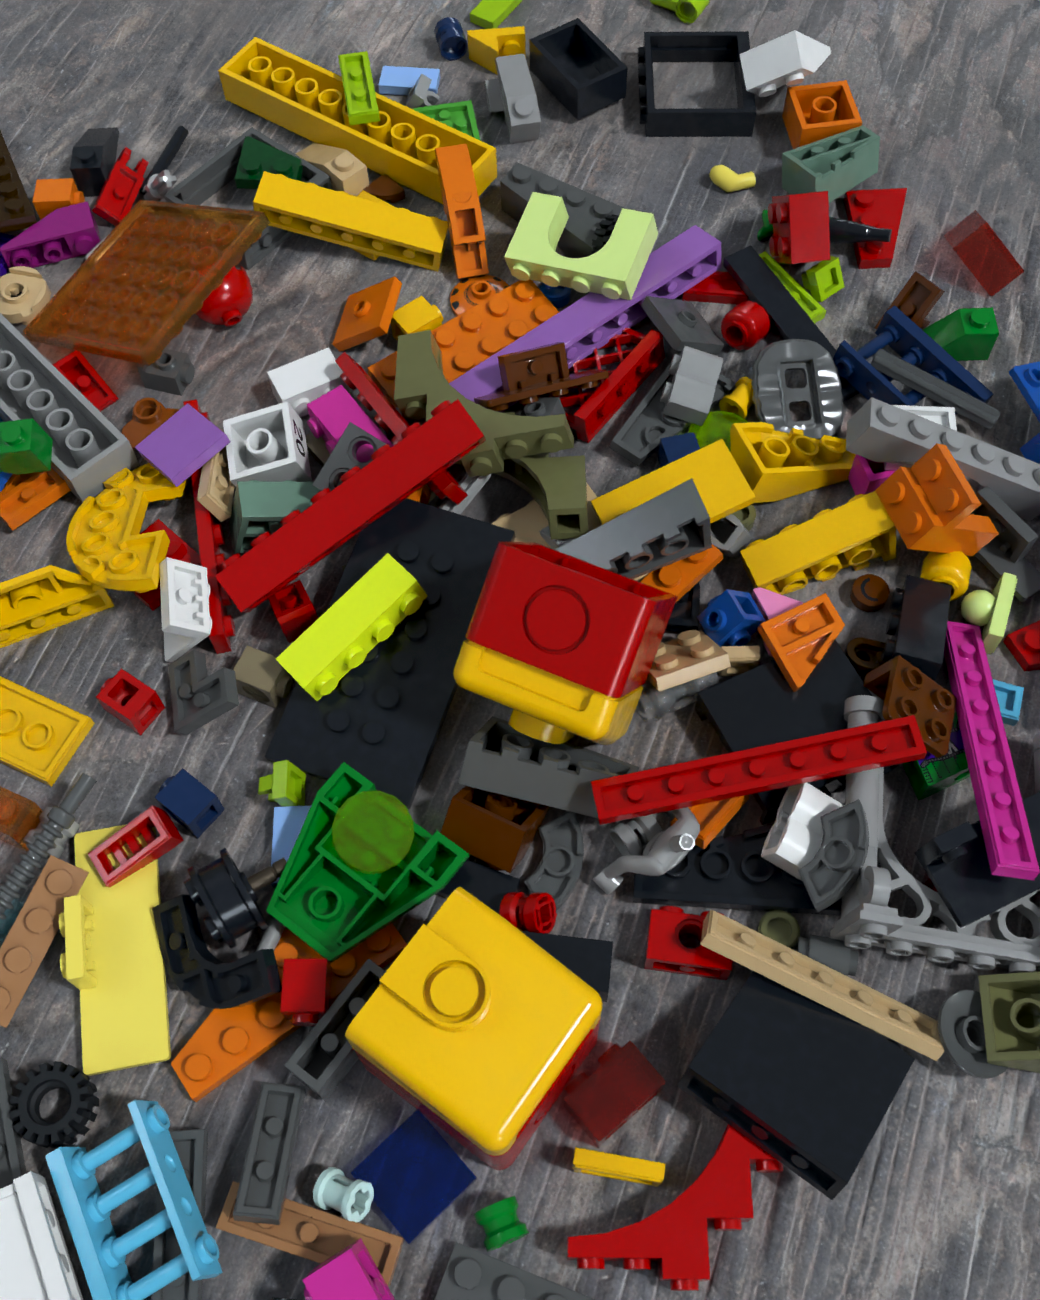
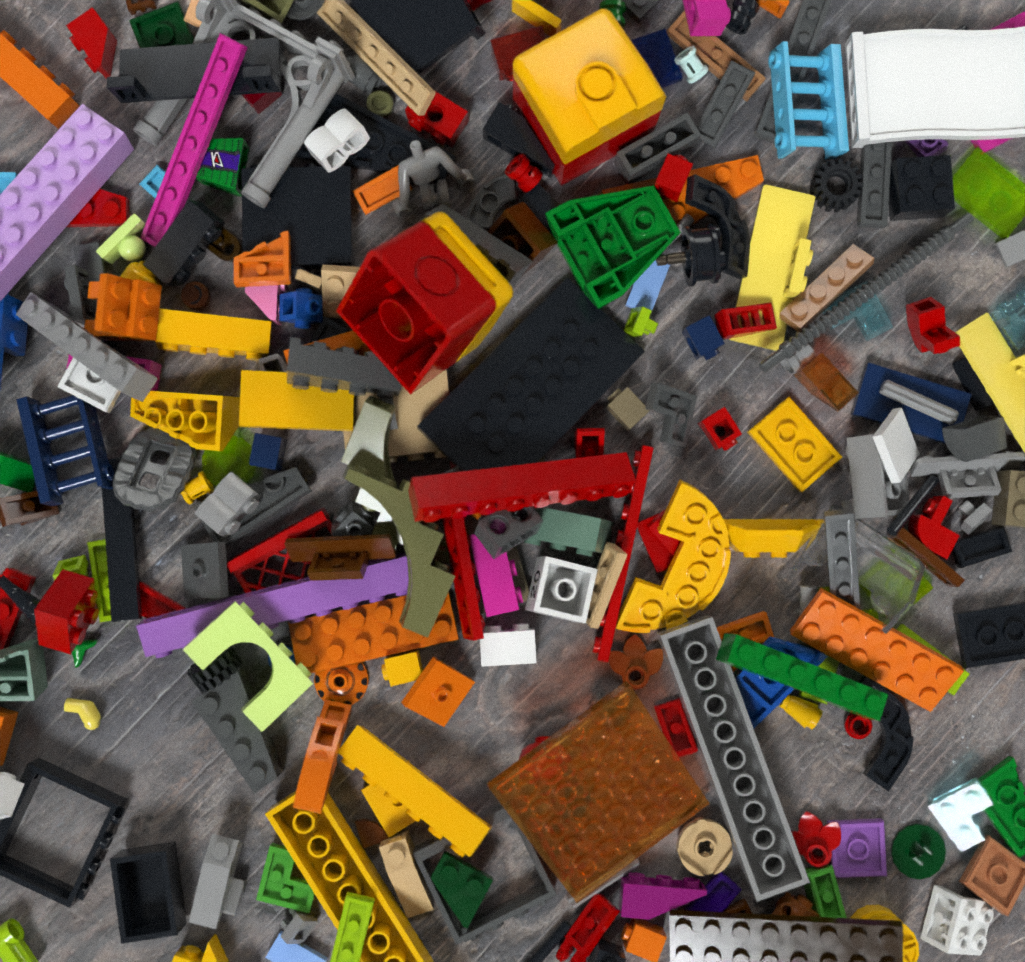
camera: 160 degrees left, 25 degrees up
(158, 185) = (556, 909): light grey axle -> none
(182, 444) = (622, 614): medium lavender tile -> none
(183, 606) = (663, 471): white bracket -> none
(352, 627) = (557, 397): neon yellow brick -> none
(372, 832) = (598, 252): clear neon green tile -> none
(745, 325) = (156, 552): red head -> none
(758, 769) = (344, 176): red plate -> none
(839, 857) = (326, 104): dark grey tile -> none
(911, 692) = (220, 183): reddish brown bracket -> none
(935, 388) = (56, 420): dark grey axle -> none

